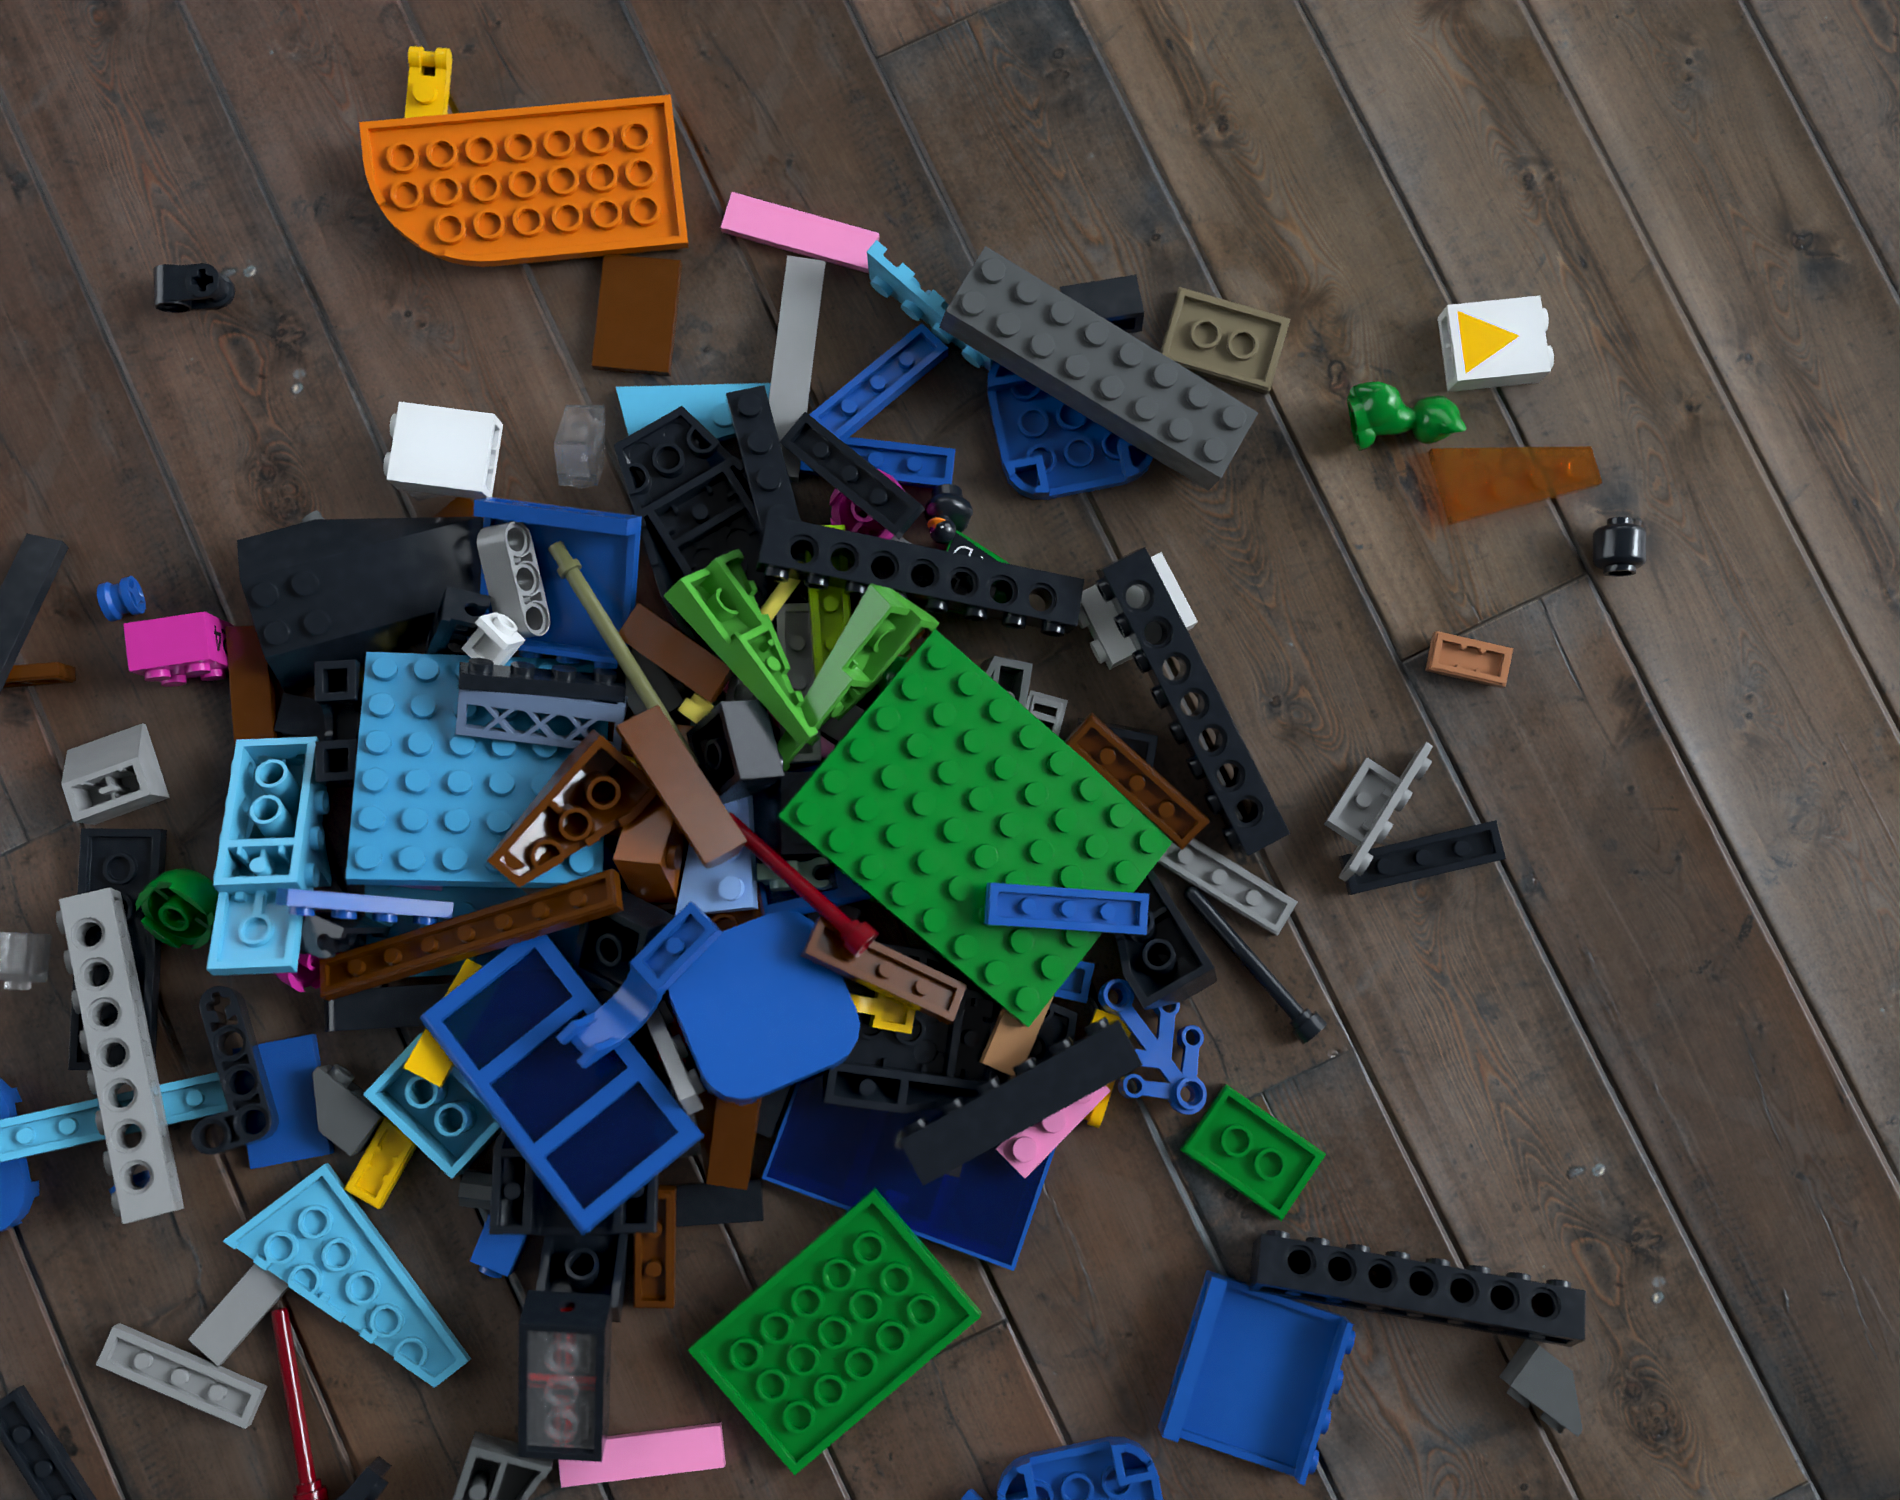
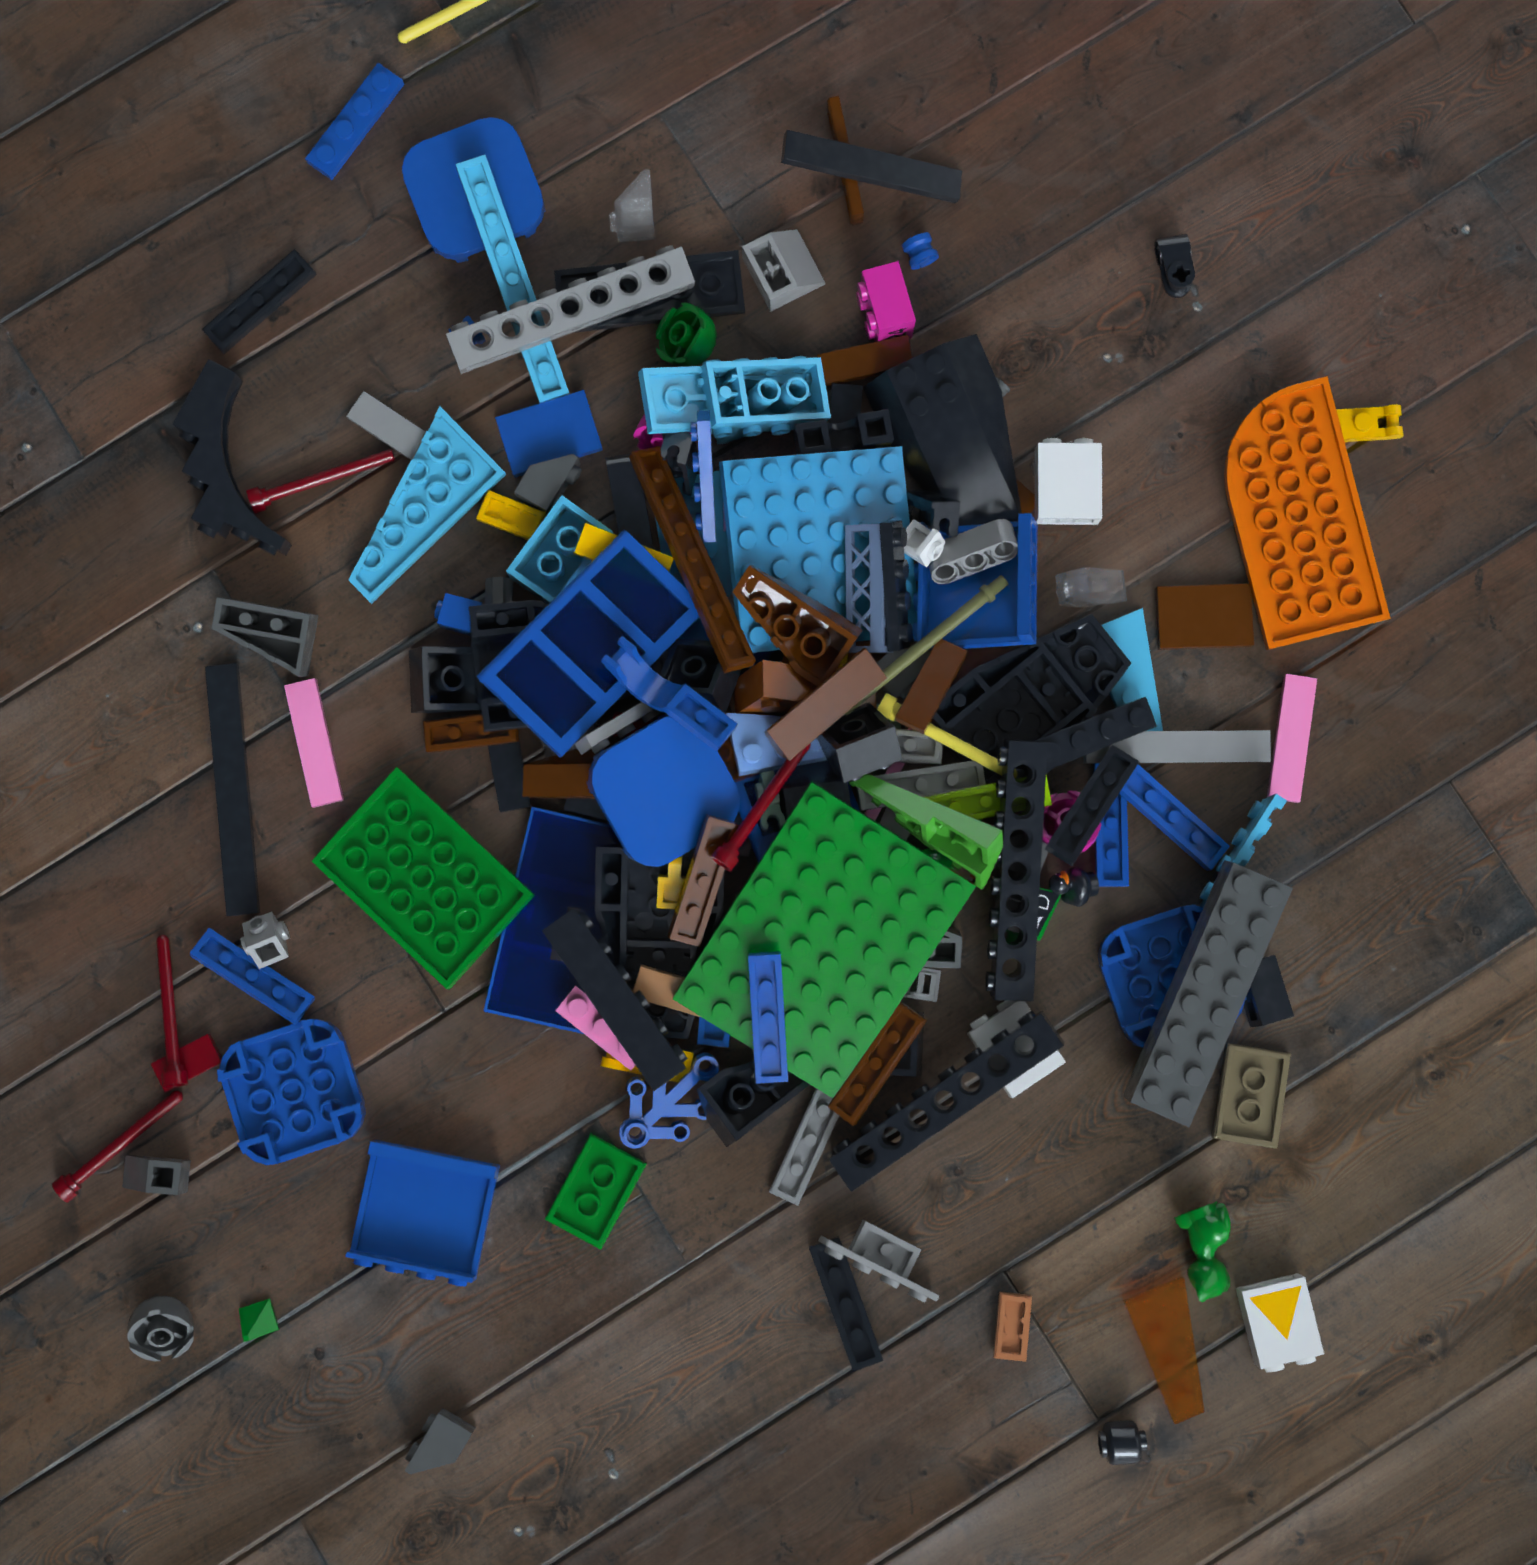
camera: 85 degrees right, 0 degrees up
(181, 1375) = (336, 390): light grey plate -> none
(229, 1068) = (569, 391): black beam -> none
(564, 1375) = (369, 677): brick -> none
(727, 617) = (965, 721): bright green wedge -> none
(1304, 1022) = (703, 1220): black piece -> none
(1563, 1305) = (508, 1449): black brick -> none

